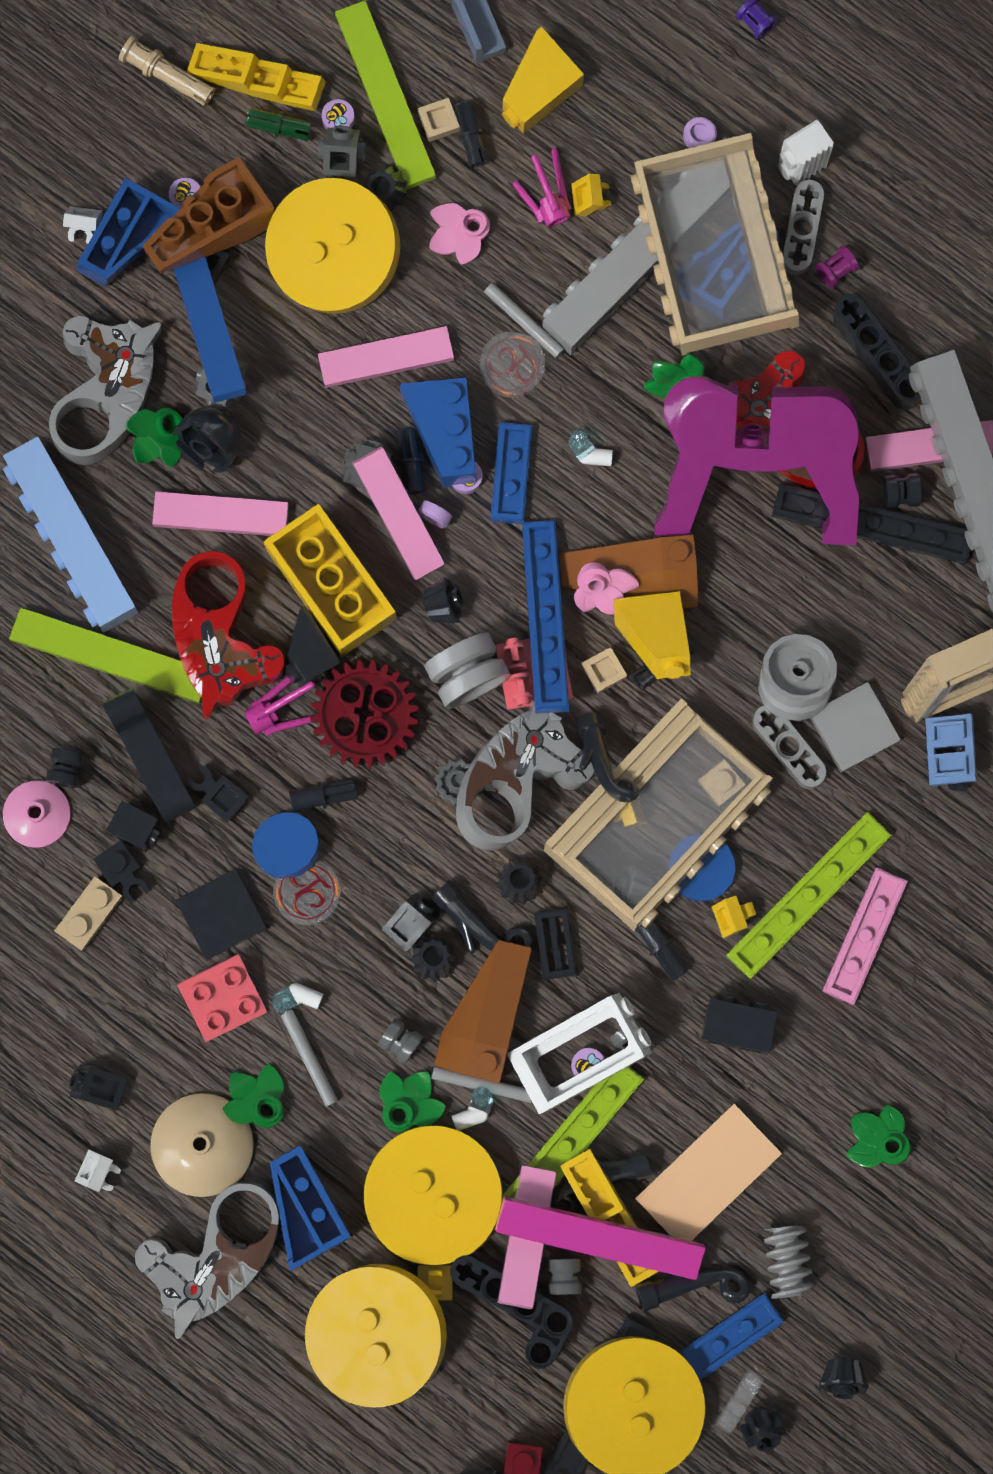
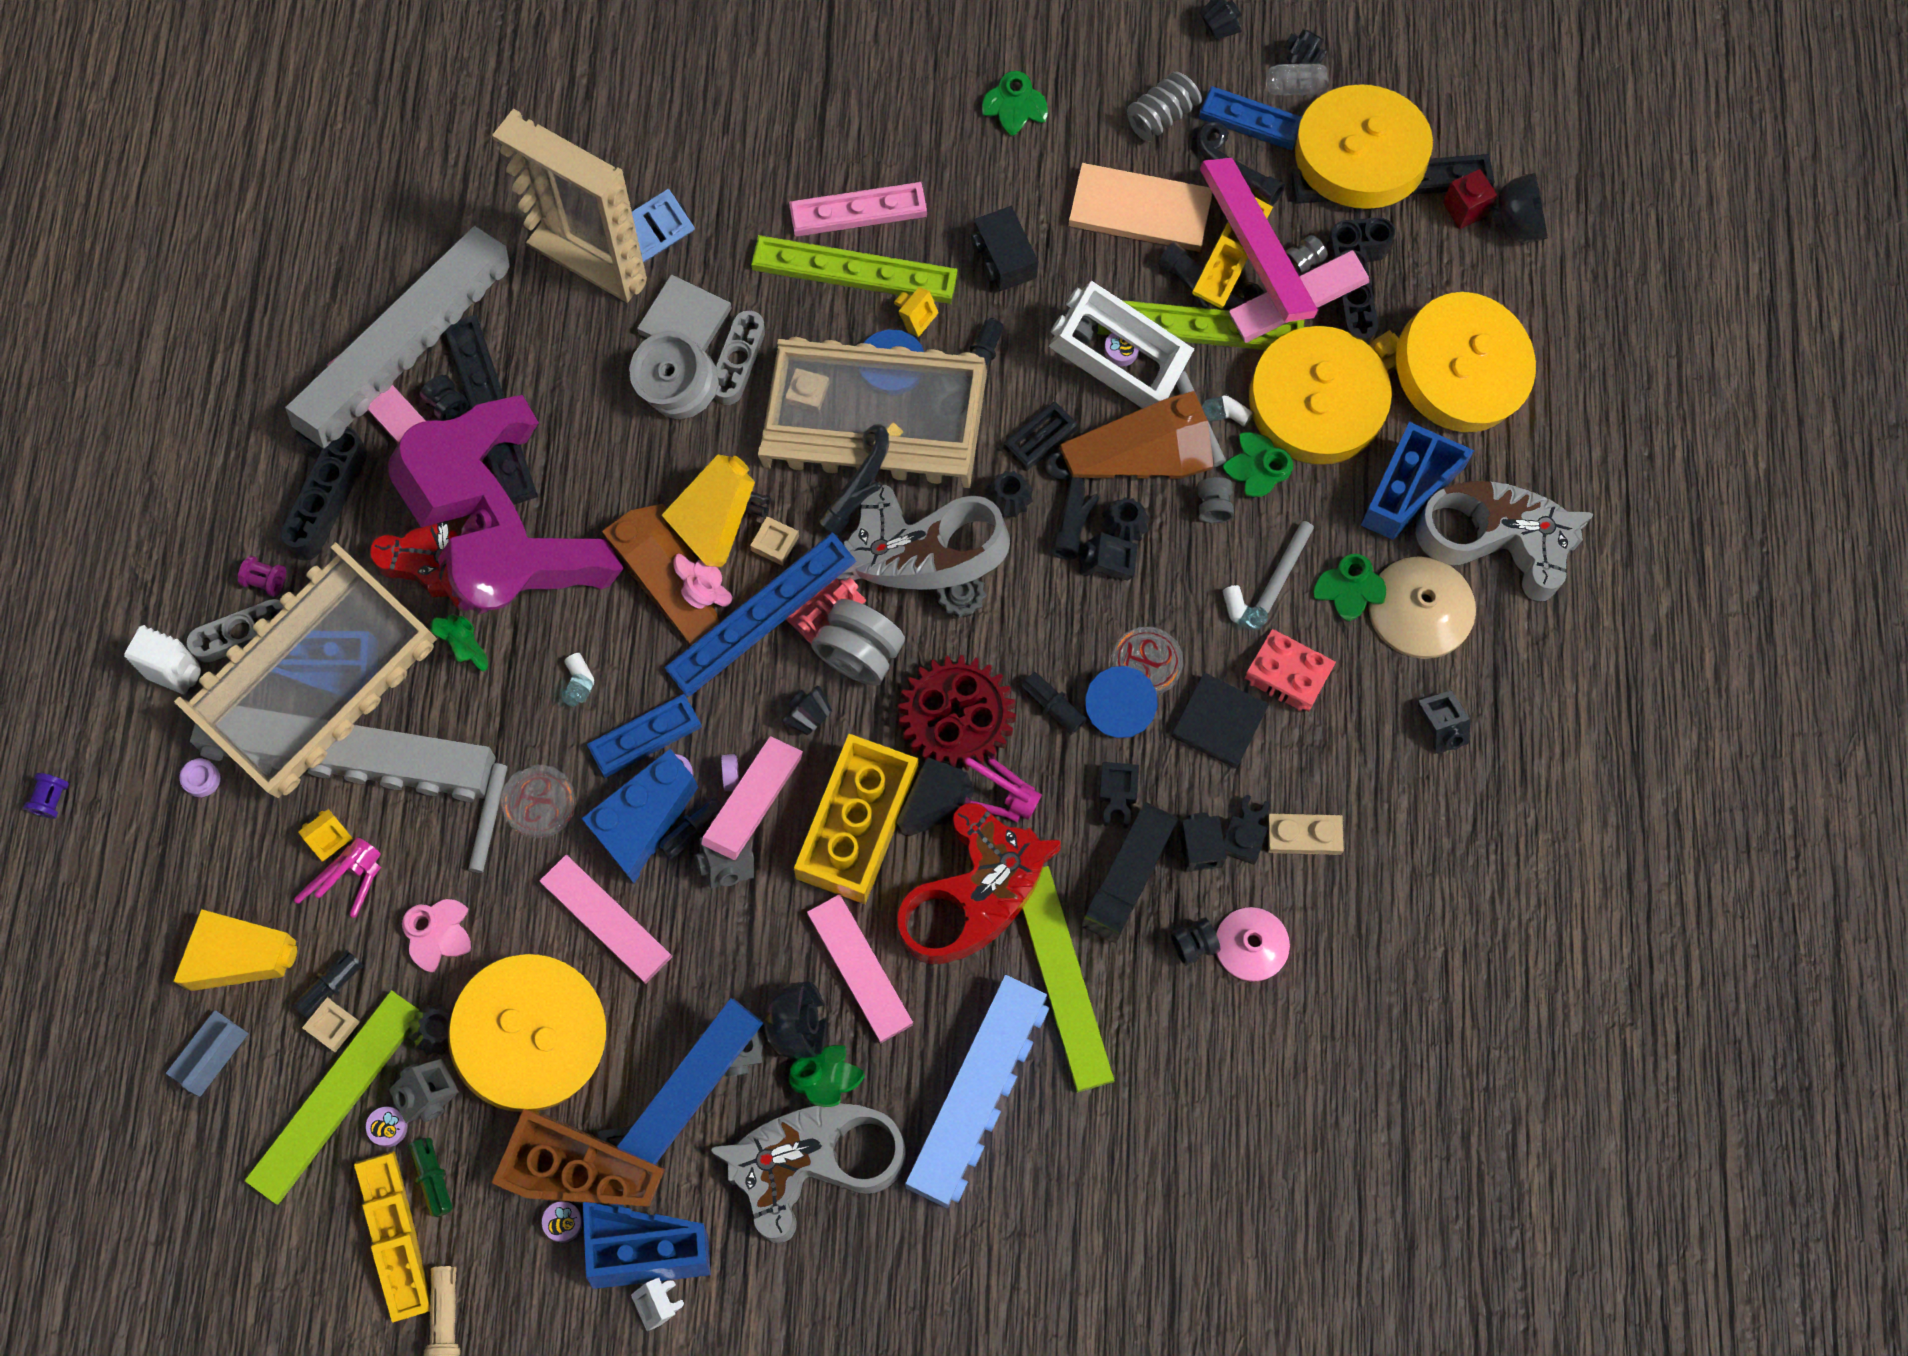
camera: 125 degrees left, 10 degrees down
(94, 1171) = (1515, 673): white tile -> none

